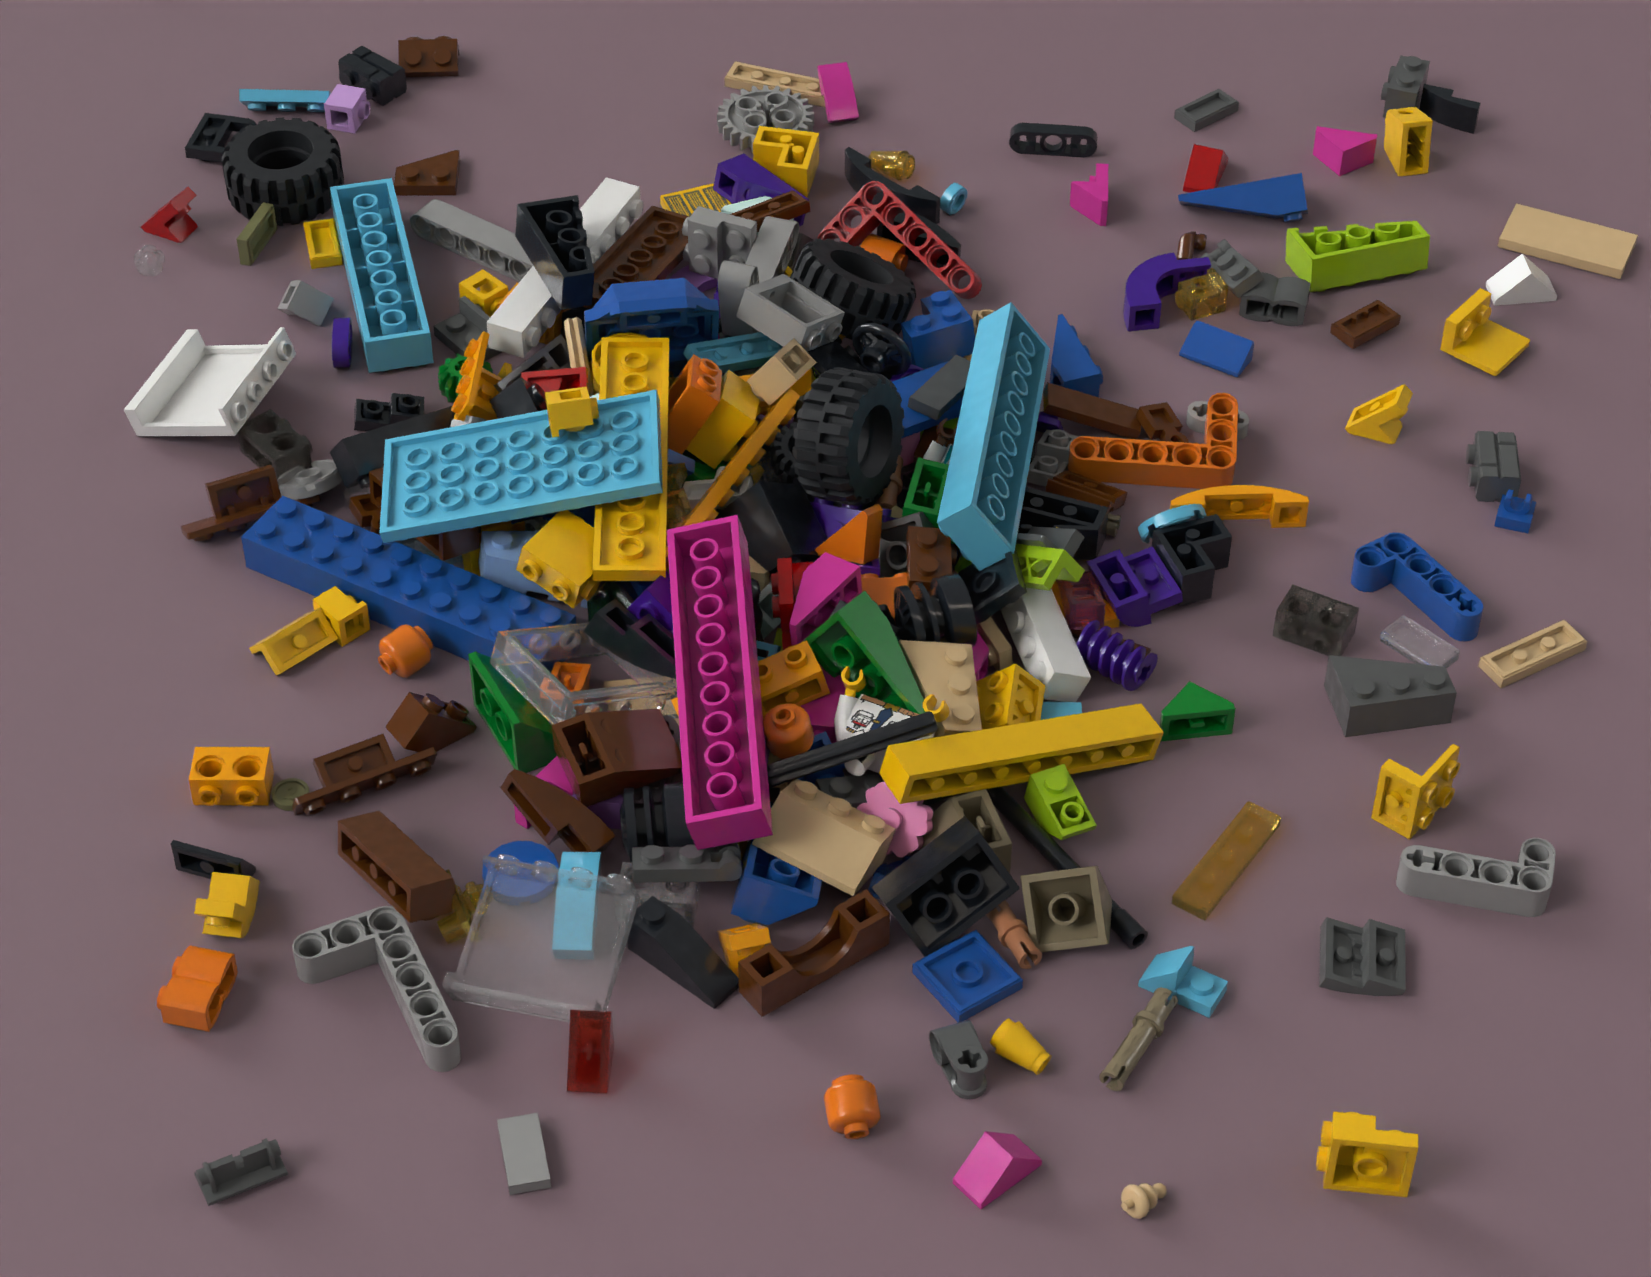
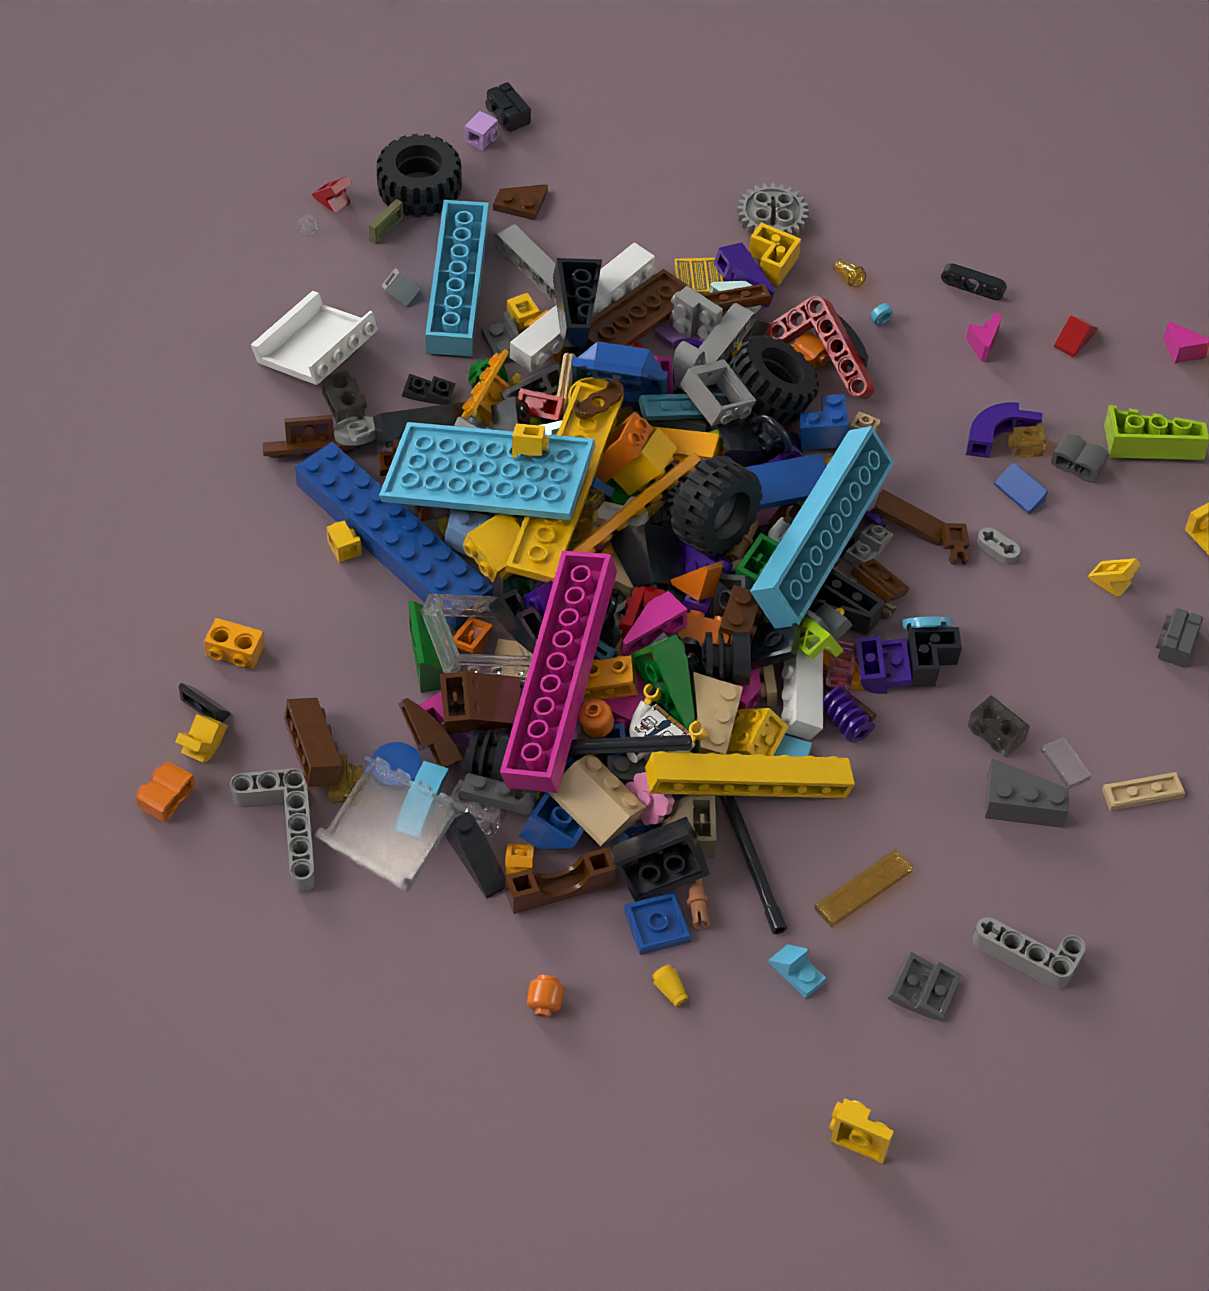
camera: 15 degrees right, 10 degrees up
(212, 134) = (383, 129): black plate -> none
(240, 1173) = (151, 927): dark grey hinge -> none
(285, 99) = (442, 113): medium azure plate -> none
(286, 791) = (269, 665): olive piece -> none
(296, 641) = (308, 552): yellow panel -> none
(322, 243) = (428, 238): yellow tile -> none
(342, 342) = (414, 325): dark purple beam -> none
(358, 769) = (316, 660): reddish brown bracket -> none
(405, 651) = (375, 580): orange head -> none
(429, 56) = (553, 100): reddish brown bracket -> none
(429, 722) = (373, 640): reddish brown slope -> none
(524, 1153) = (329, 965): light grey tile -> none
(590, 1051) = (393, 908): clear red slope -> none
(653, 341) = (611, 395): none -> reddish brown piece
(747, 75) = (812, 191): tan tile -> none
(781, 372) = (694, 437): tan slope -> none
(838, 92) = (832, 202): dark pink slope -> none
(919, 200) = (853, 311): black slope -> none
(941, 389) = (803, 478): dark grey tile -> none
(961, 1058) = (629, 979): dark grey piece -> none
(994, 1167) = (622, 1063): dark pink slope -> none
(1058, 803) = (763, 817): lime slope -> none
(1067, 908) = (737, 897): dark tan slope -> none
(1072, 362) = (909, 475): blue slope -> none
(1141, 1198) = (706, 1114): tan hair -> none
(1146, 1026) = (759, 995): dark tan pin -> none
(1165, 461) = (948, 567): orange beam -> none
(1189, 242) = (1036, 395): reddish brown arm -> none
(1196, 715) = (884, 774): green slope -> none
(1206, 110) = (1098, 282): dark grey tile -> none
(1234, 269) = (1056, 426): dark grey plate -> none
(1238, 502) = (987, 618): light orange slope -> none
(1269, 198) = (1110, 373): blue wedge -> none
(1365, 324) = (1137, 495): reddish brown plate -> none
(1408, 800) = (1005, 886): yellow bracket -> none
(1419, 577) = (1078, 695): blue beam -> none
(1515, 512) = (1180, 677): blue tile -> none

